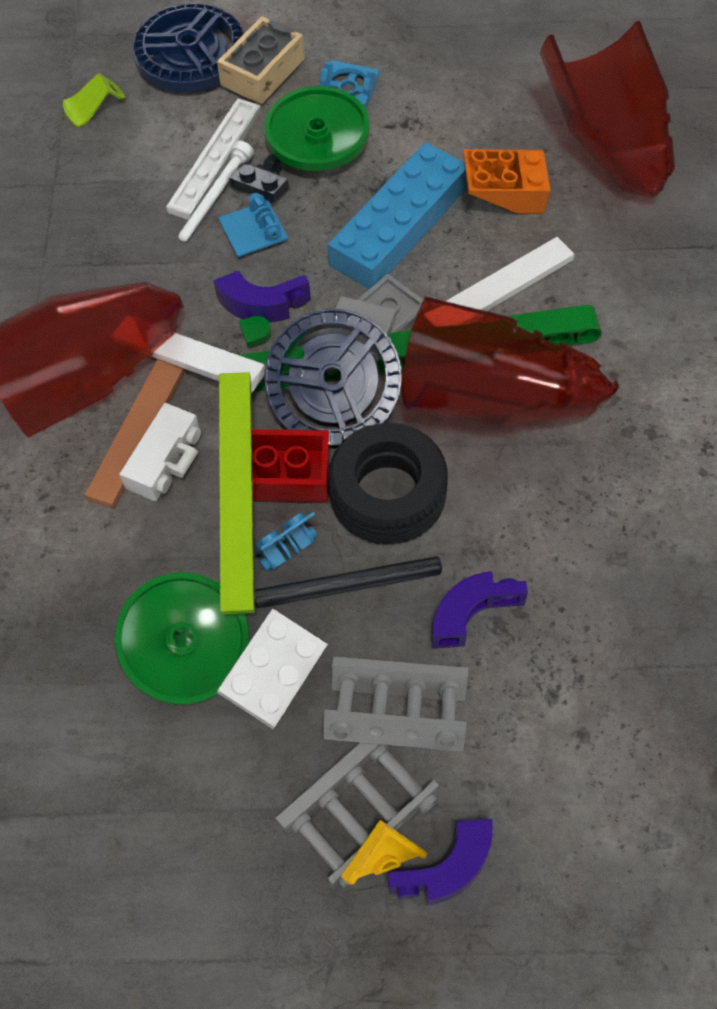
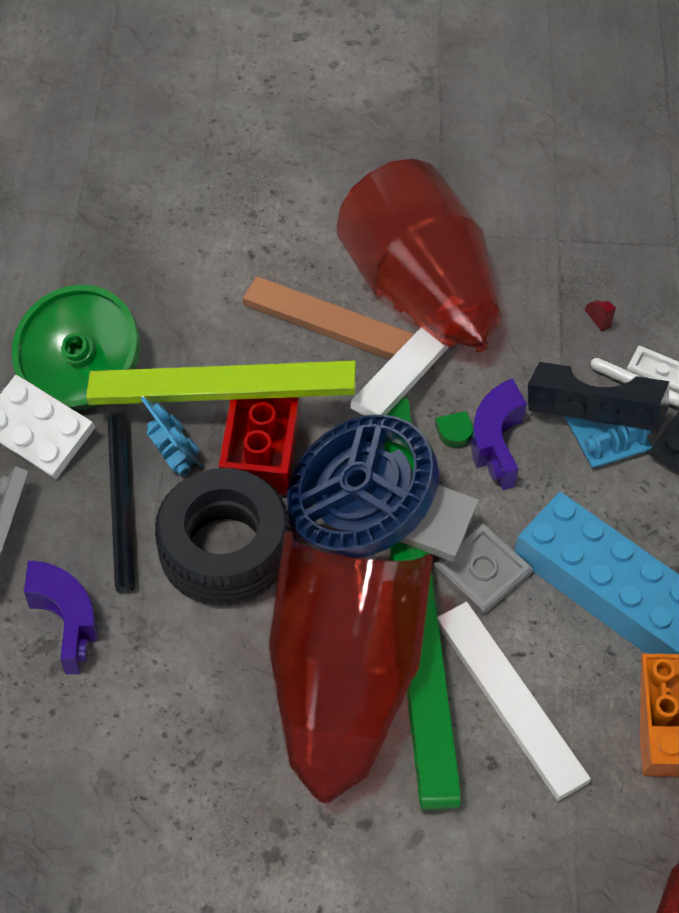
camera: 90 degrees right, 5 degrees down
(133, 230) = (601, 313): none -> dark red tile
(159, 450) = (294, 335): white piece -> none
(224, 250) = (635, 404): none -> black arch

